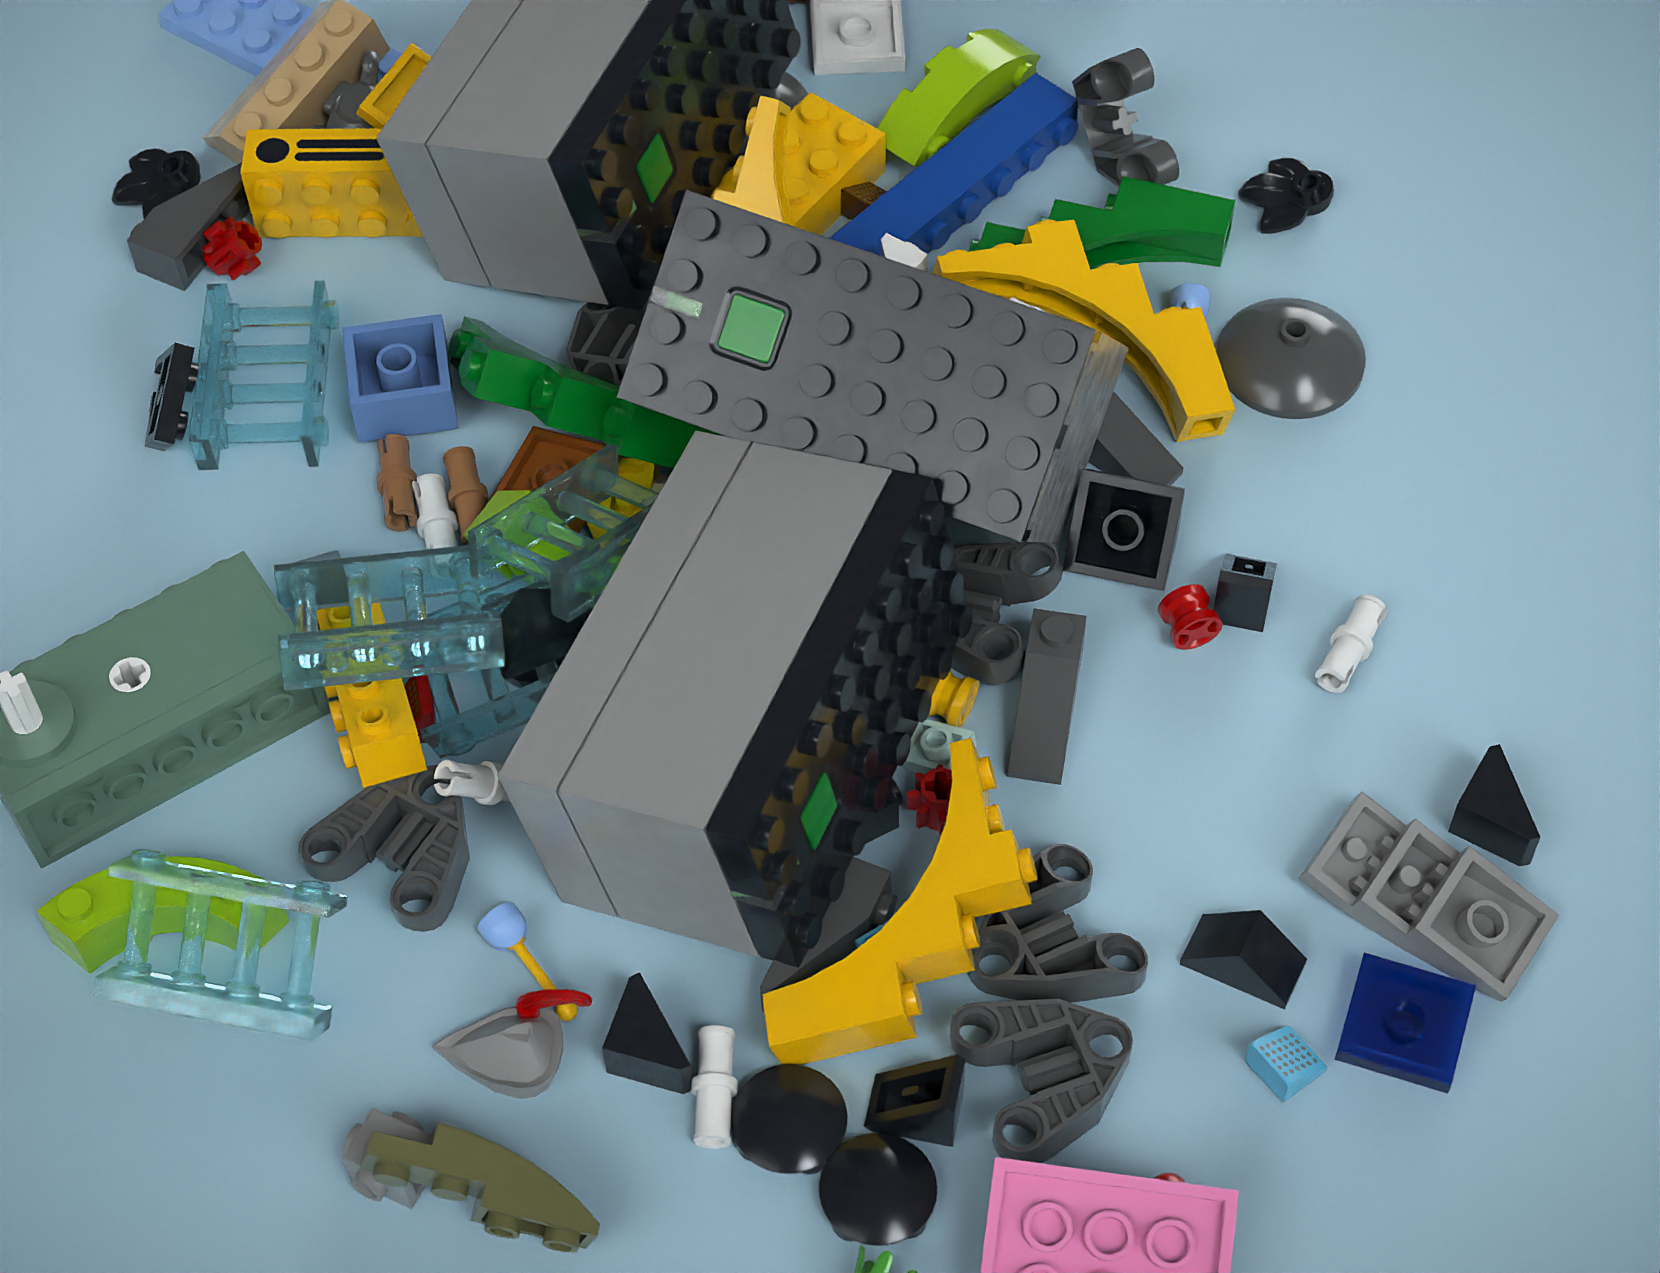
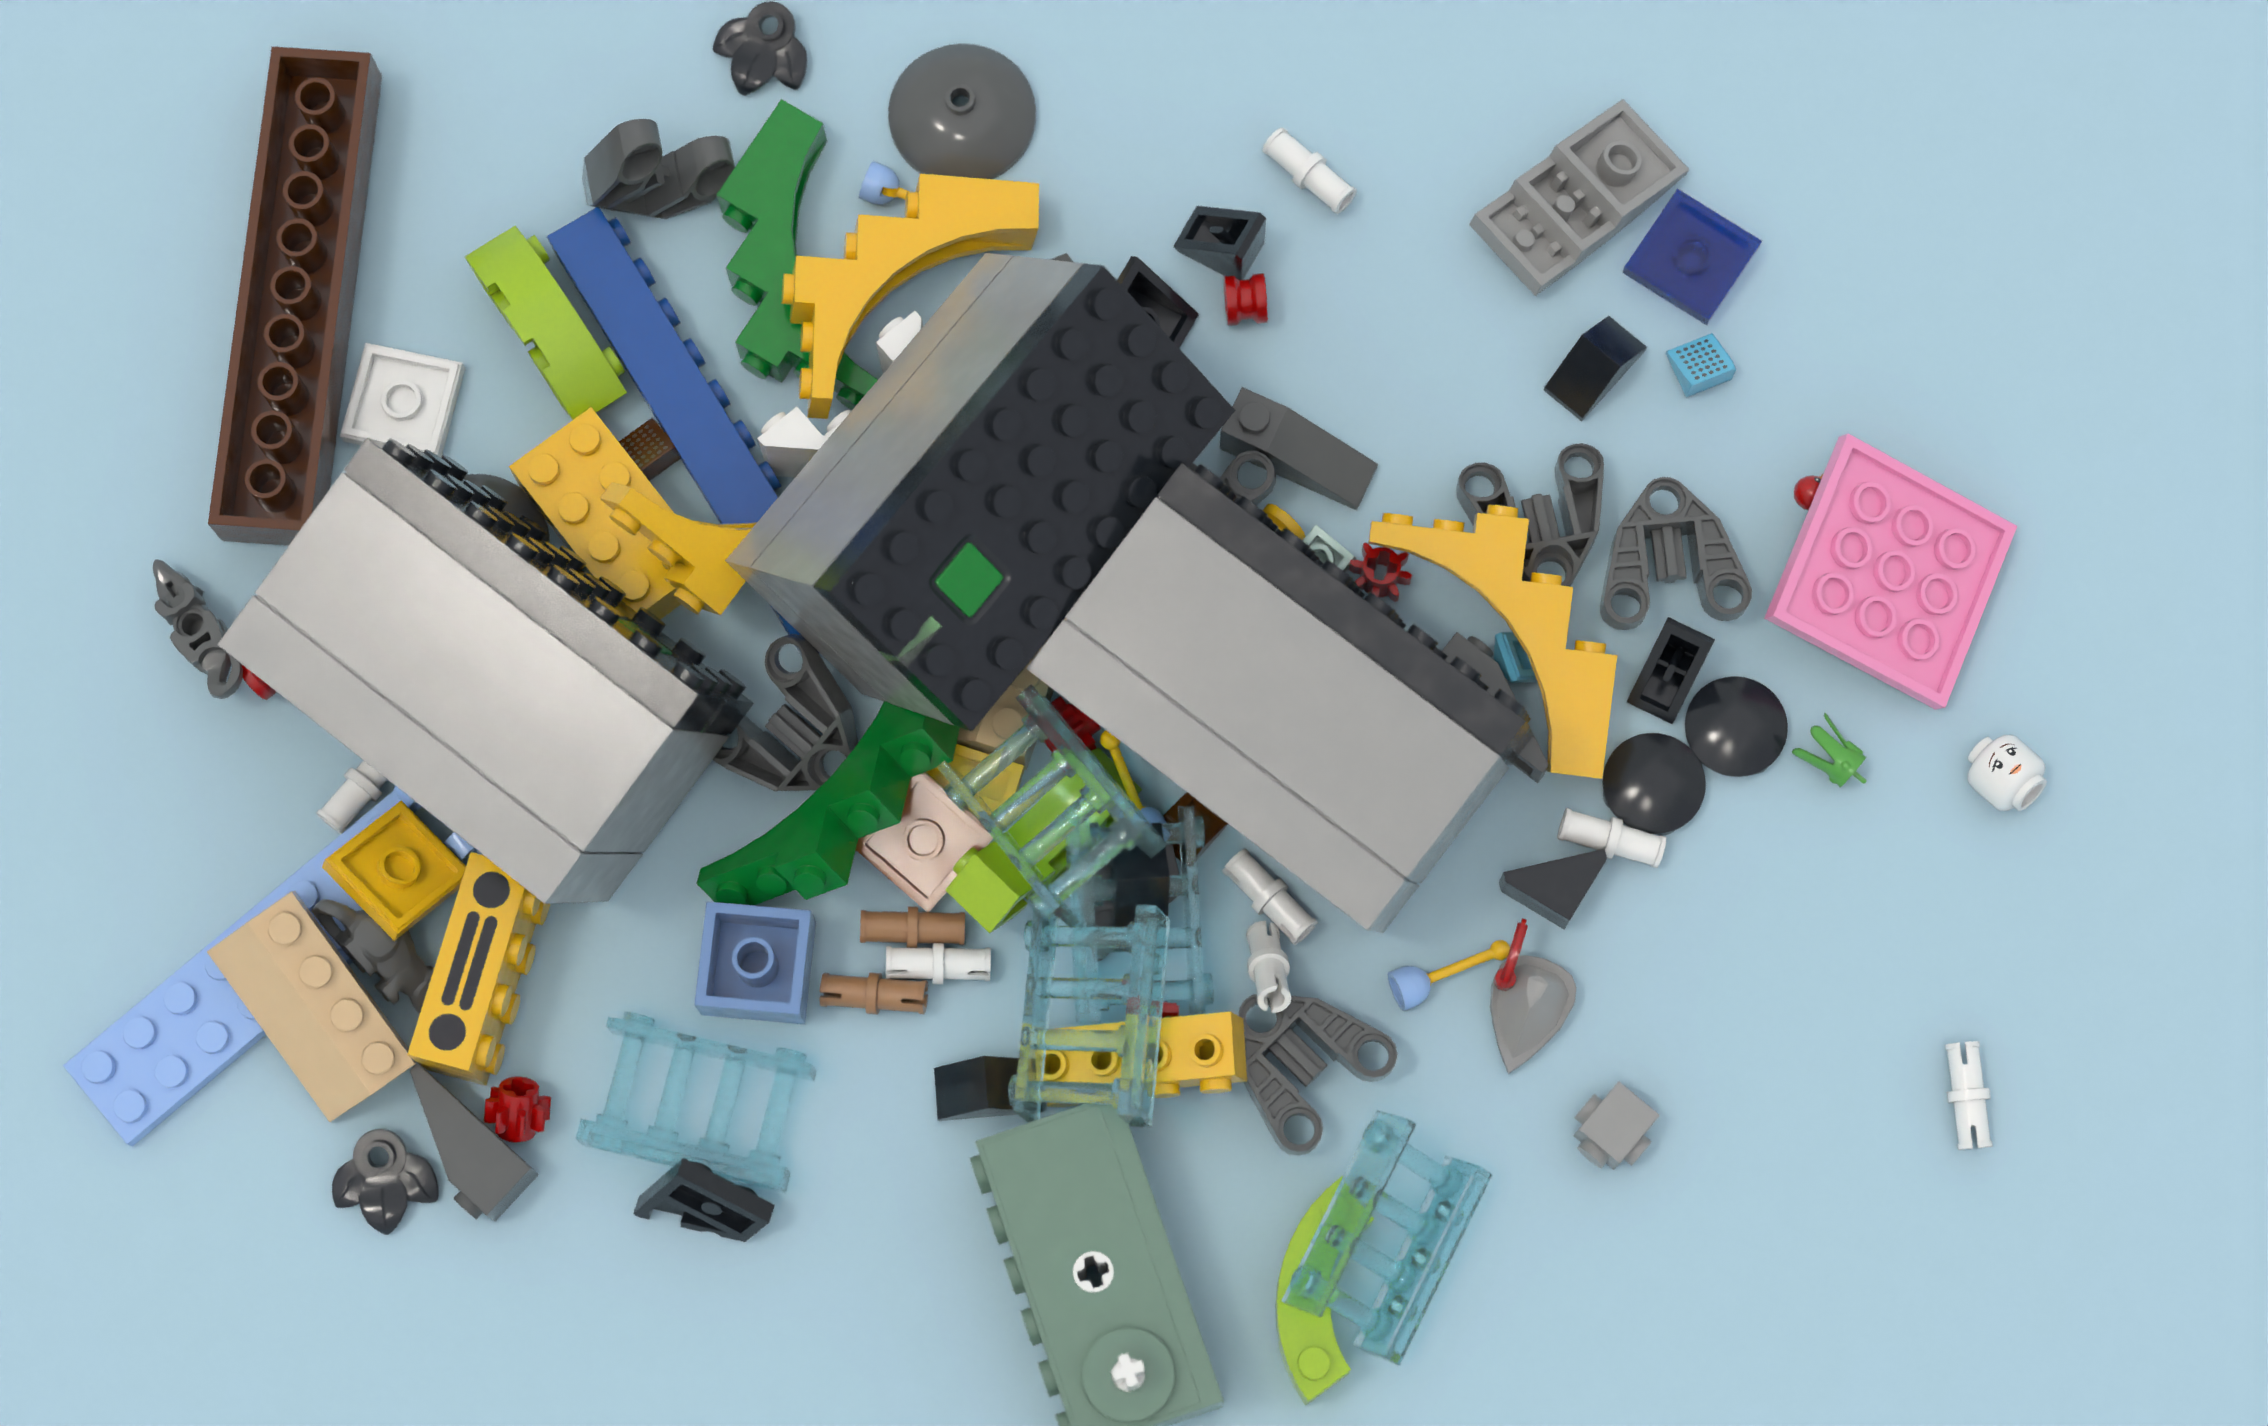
camera: 75 degrees left, 20 degrees up
(507, 1189) = (1677, 1044): olive slope -> none
(1495, 813) = (1512, 112): black slope -> none

